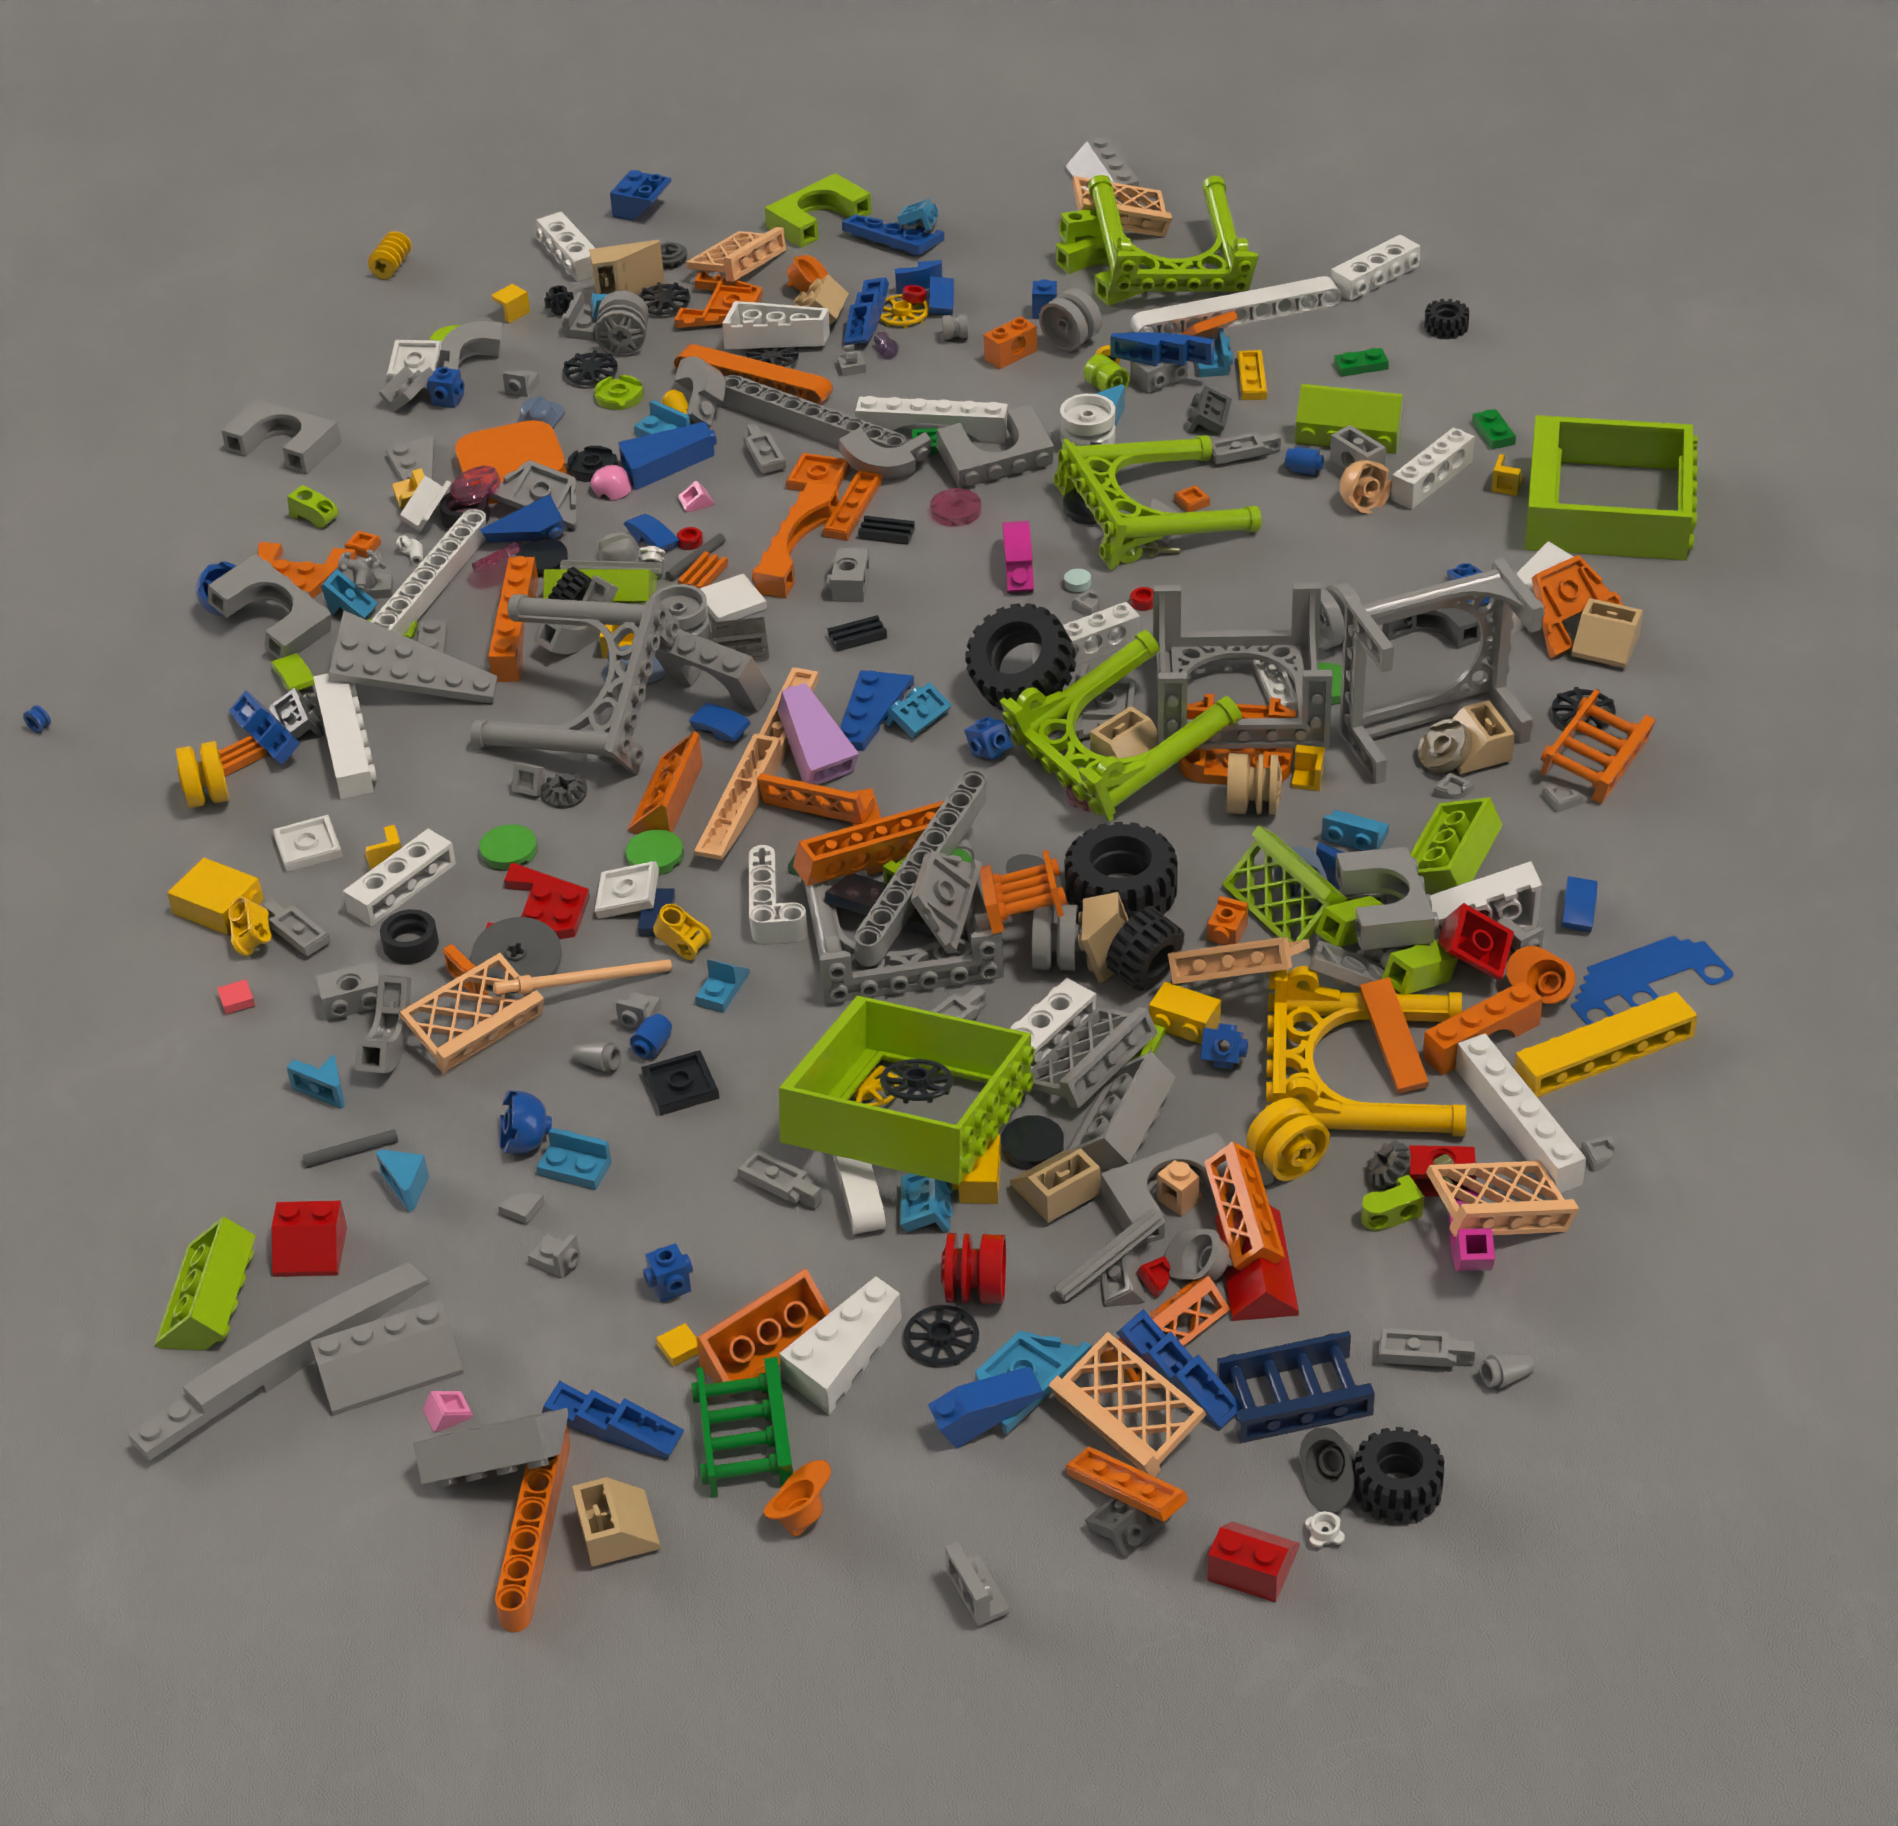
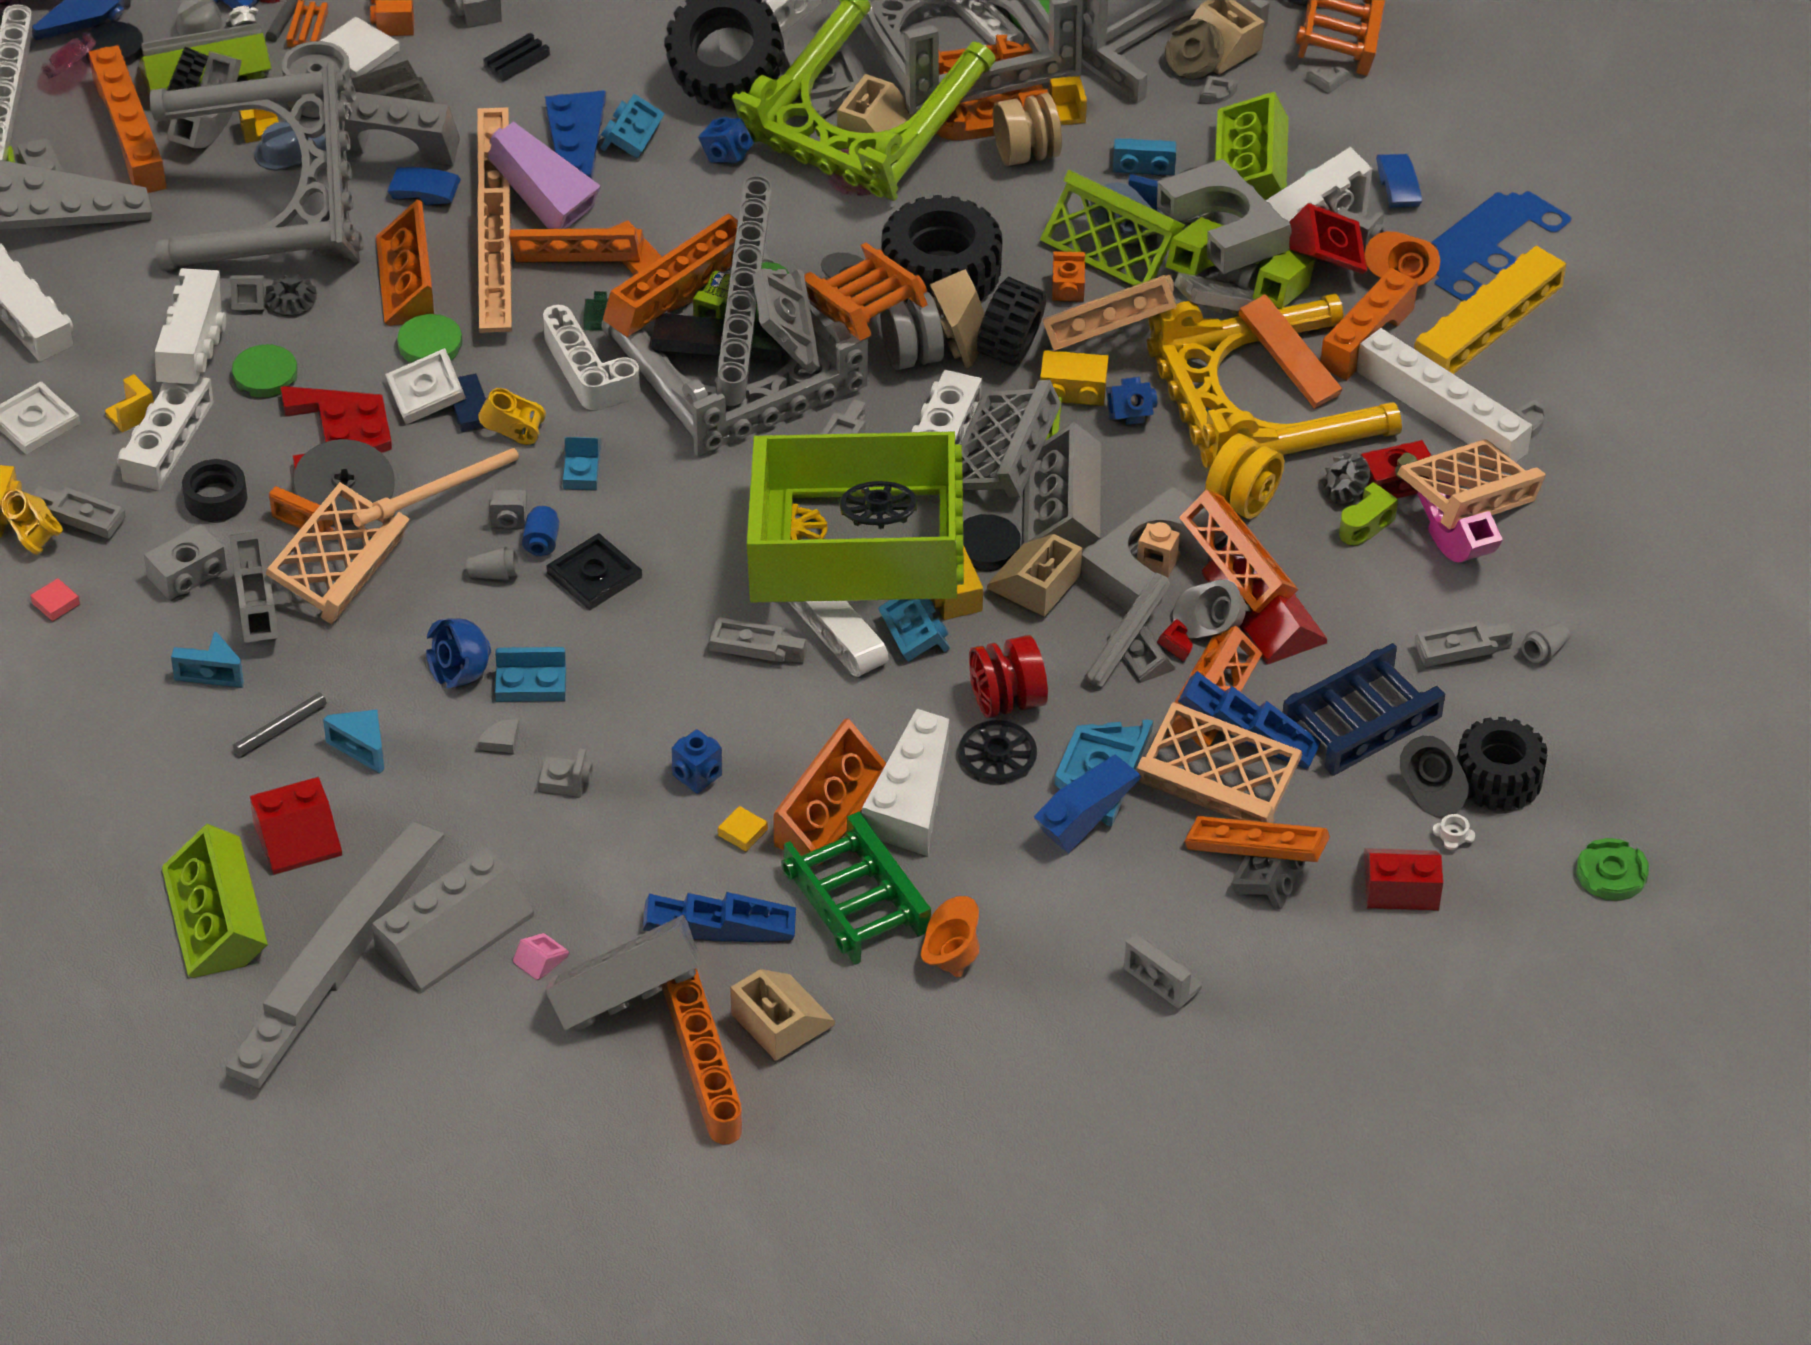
camera: 25 degrees left, 5 degrees up
(455, 797) = (190, 327): none -> white wedge
(1464, 1611) = (1612, 869): none -> bright green tile

